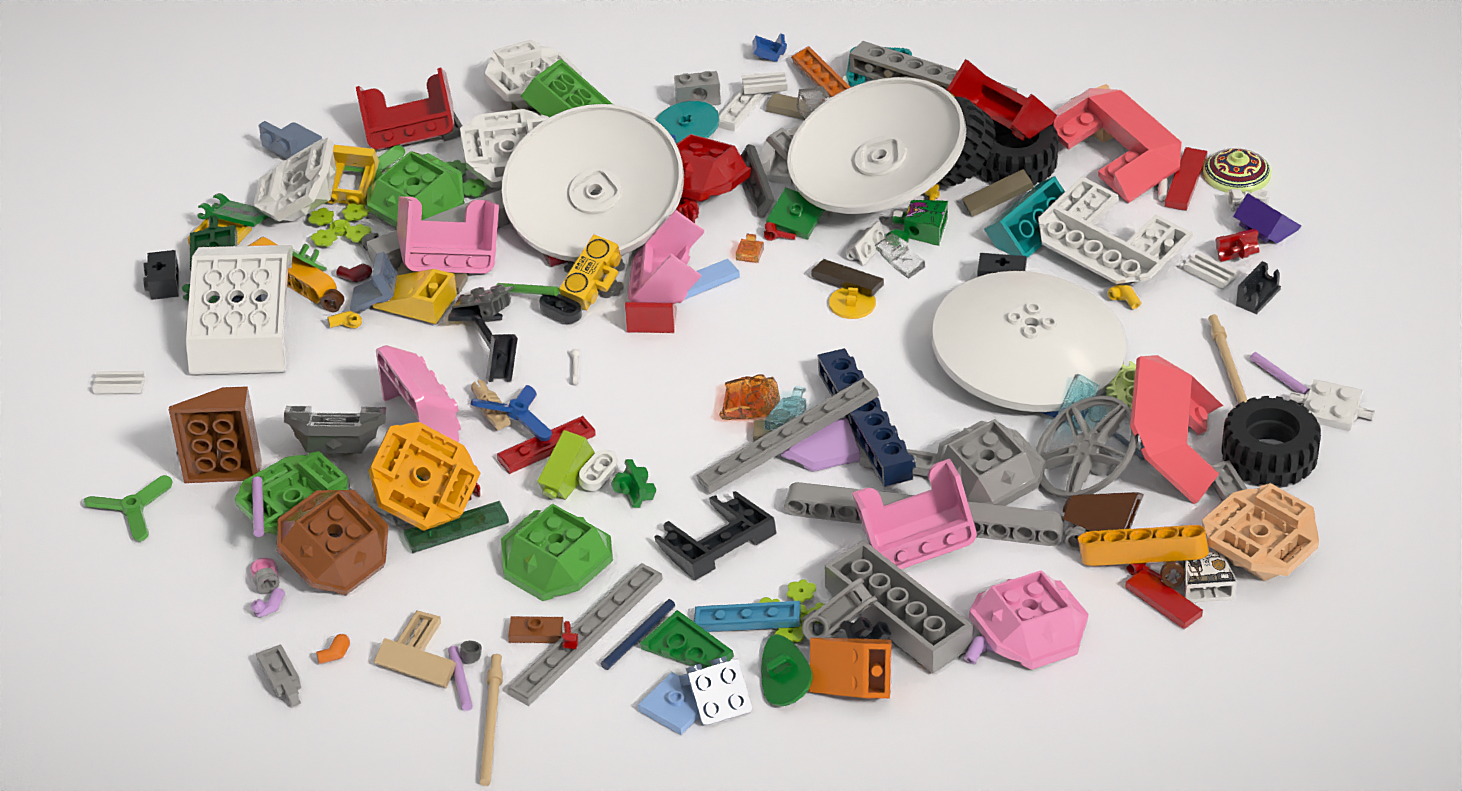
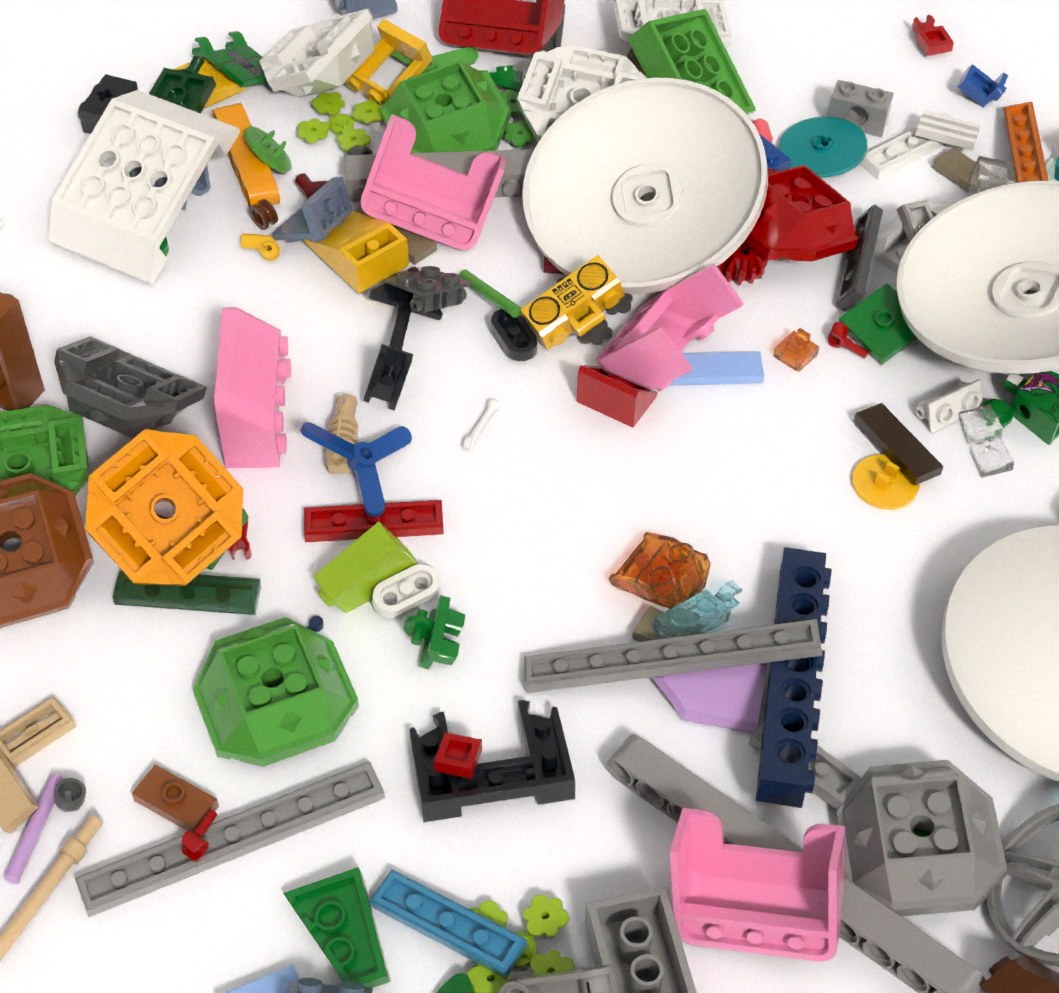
camera: 25 degrees right, 10 degrees up
(443, 153) = (508, 77): none -> green slope
(638, 634) = (294, 874): dark blue bar -> none
(697, 531) = (458, 755): none -> red plate
(716, 29) = (930, 38): none -> red plate

